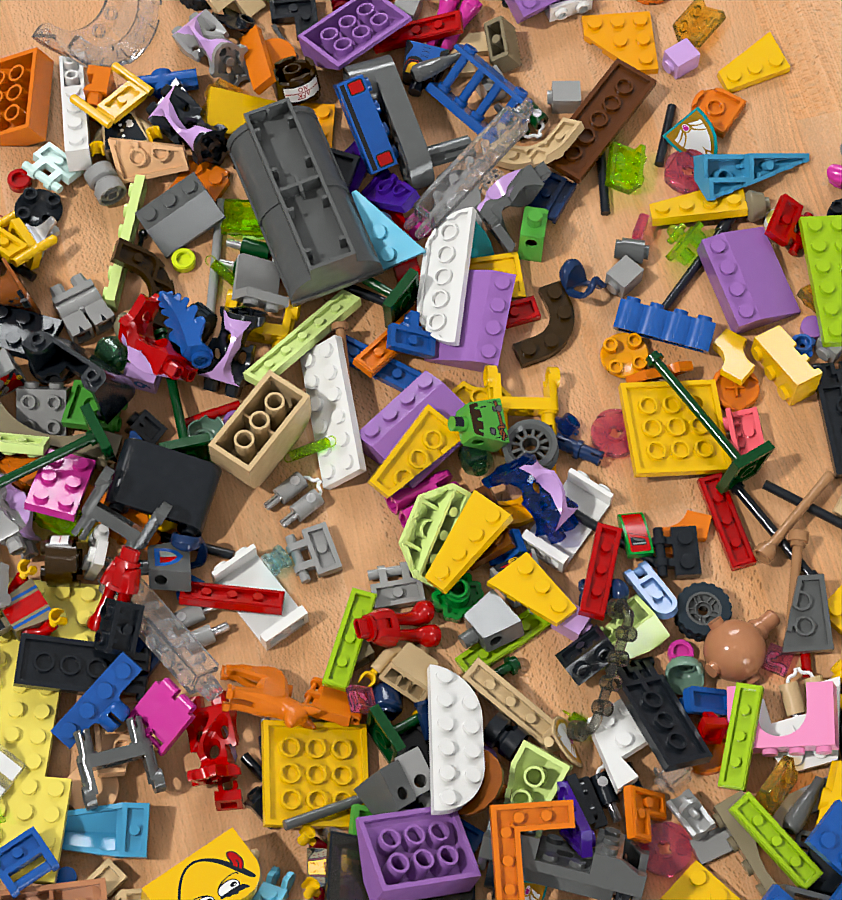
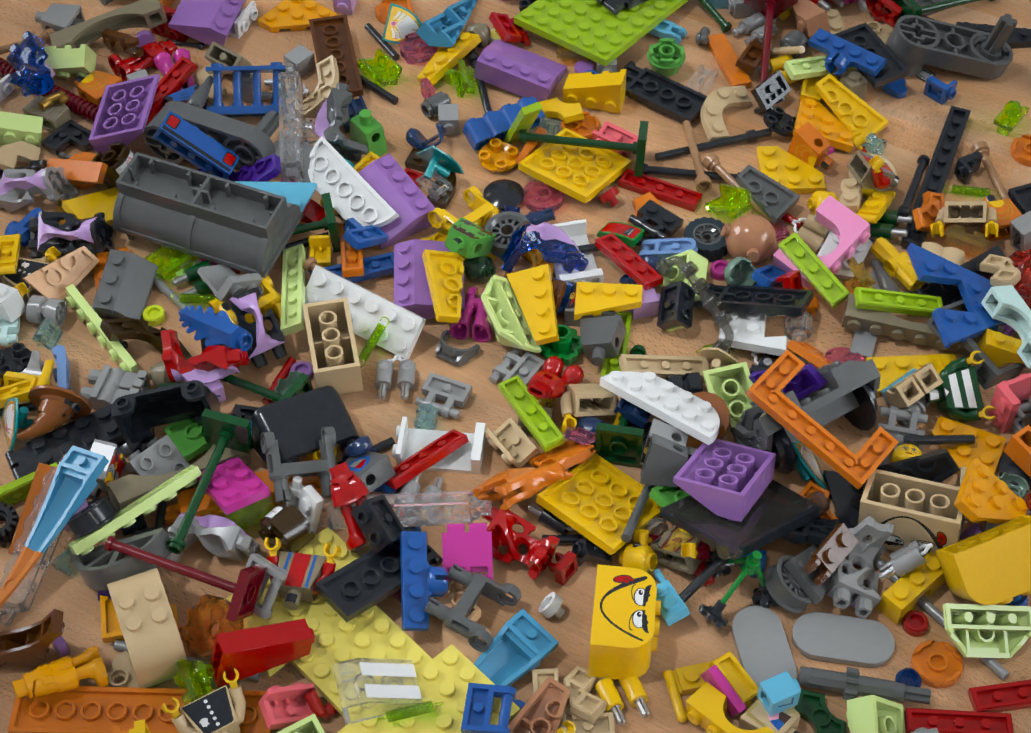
camera: 45 degrees left, 15 degrees down
(58, 257) = (62, 372): none -> medium blue plate
(87, 206) = (47, 334): none -> clear light blue tile
(183, 820) = (551, 606): none -> white tile
(286, 850) = (639, 557): none -> yellow head
(312, 649) = (513, 442): none -> tan bracket
(363, 526) = (454, 355): none -> dark grey helmet
(367, 320) = (321, 249): none -> yellow bracket
(525, 351) = (439, 190): none -> clear tile
(544, 320) = (438, 162): none -> teal shield
(584, 398) = (503, 193): none -> black dish
(661, 346) = (523, 120): none -> lime tile
(670, 487) = (610, 196): none -> red tile
(691, 815) = (836, 333): light grey hips -> none
(702, 367) = (553, 126): none -> clear light blue tile
(762, 596) = (732, 202): none -> clear neon green bracket

